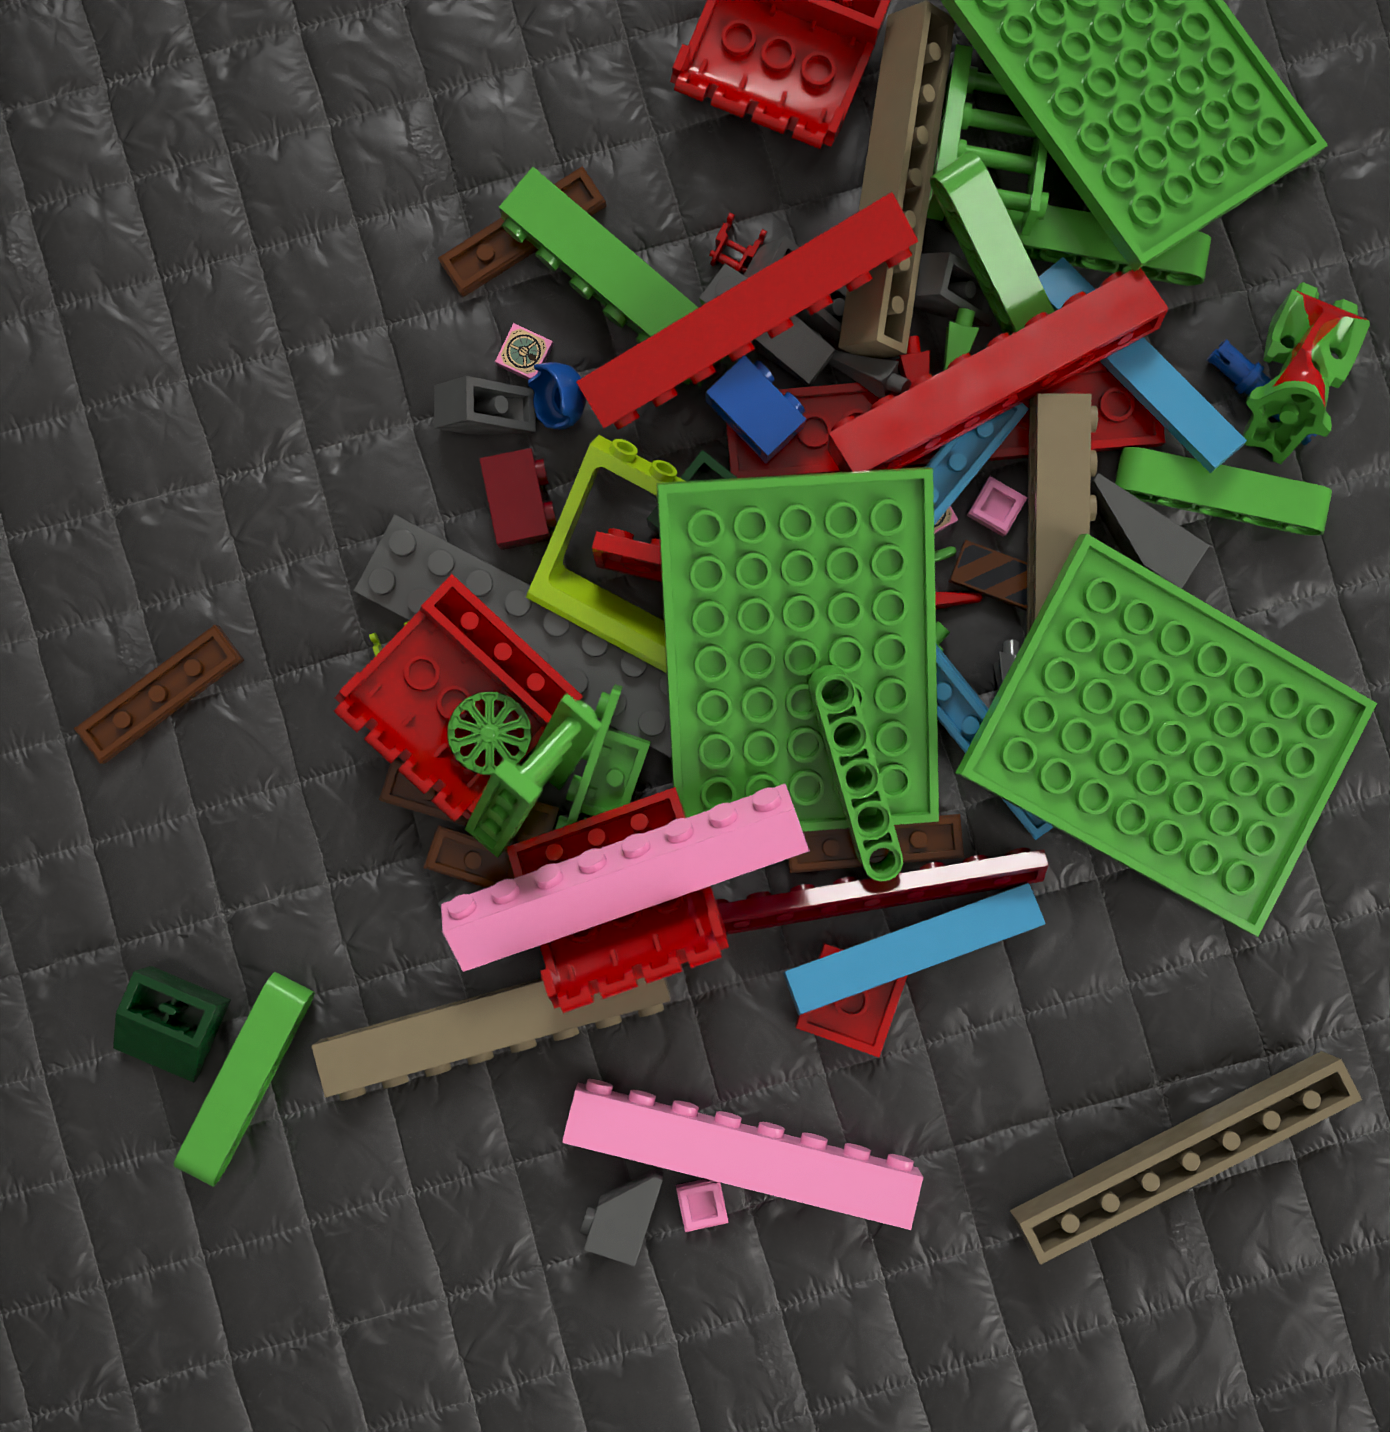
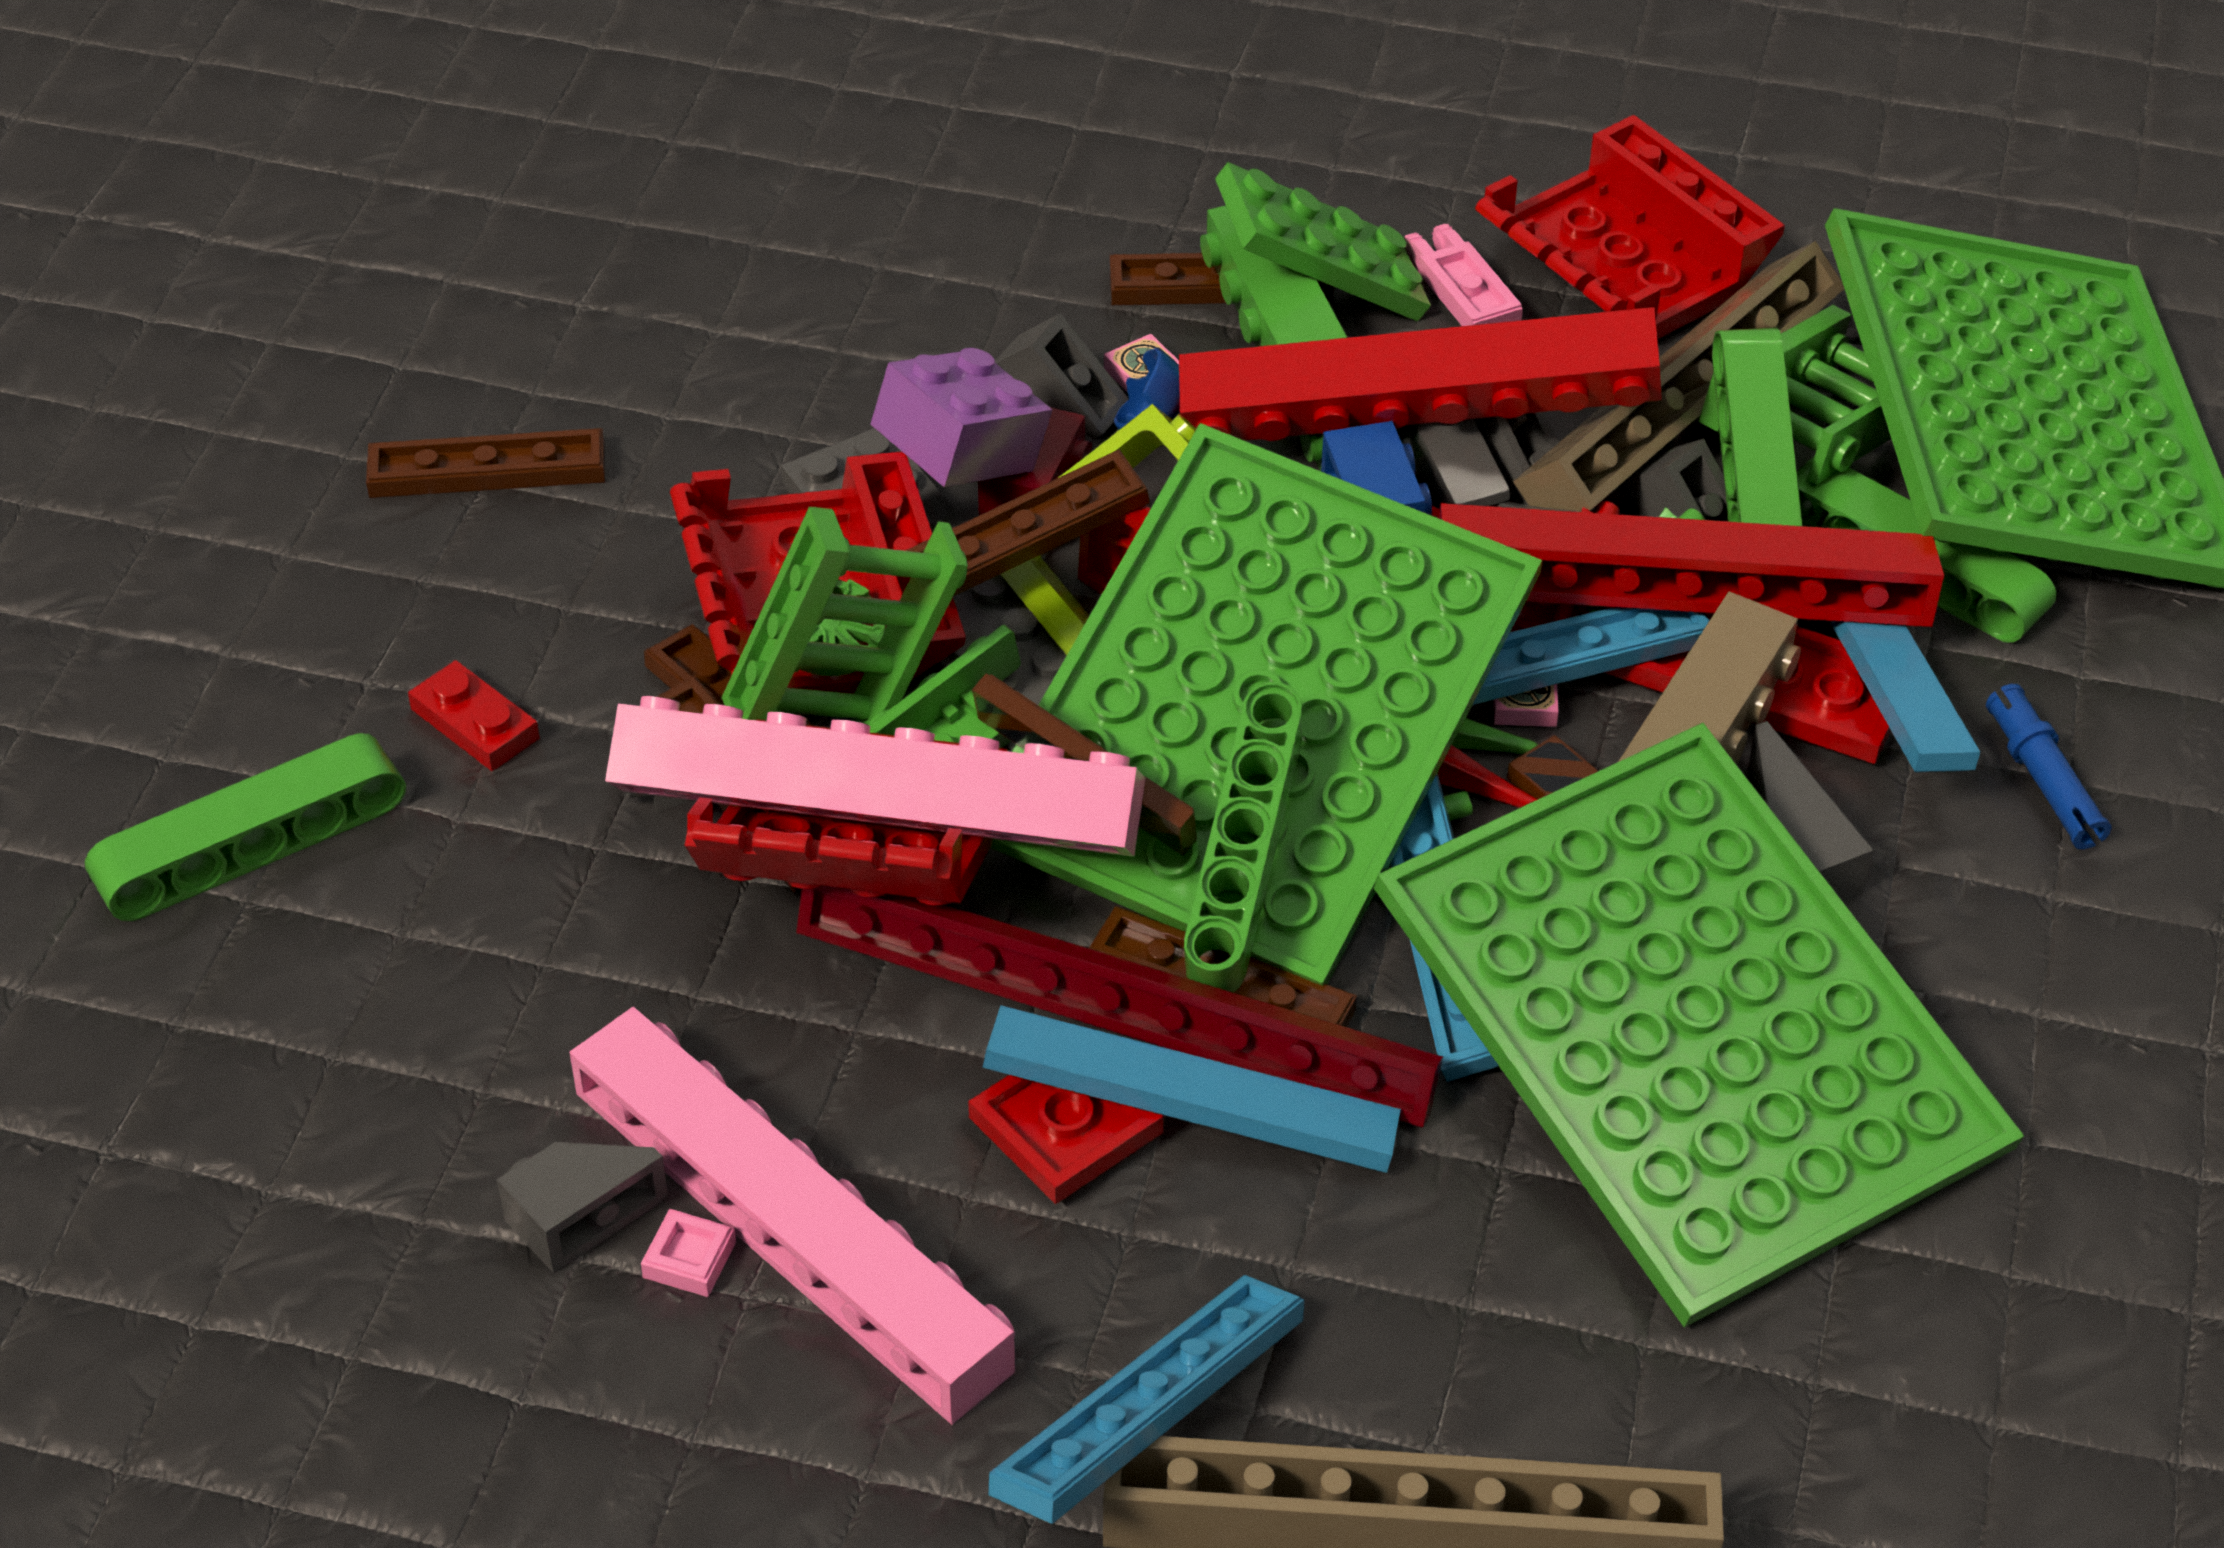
camera: 30 degrees right, 40 degrees down
(168, 1022) = (214, 720): dark green slope -> none
(308, 906) = (473, 715): none -> red plate
(466, 1030) = (594, 912): dark tan brick -> none
(471, 528) = (961, 416): none -> medium lavender brick
(577, 606) = (1047, 517): none -> reddish brown tile
(590, 190) = (1322, 241): none -> bright green plate
(688, 146) = (1462, 278): none -> bright pink hinge
(729, 776) = (1027, 723): none -> reddish brown tile
(996, 506) = (1611, 726): bright pink tile -> none
(1025, 1187) = (1144, 1399): none -> dark azure tile
(1225, 492) = (1942, 835): bright green beam -> none
(1302, 339) = (2112, 725): bright green hips -> none

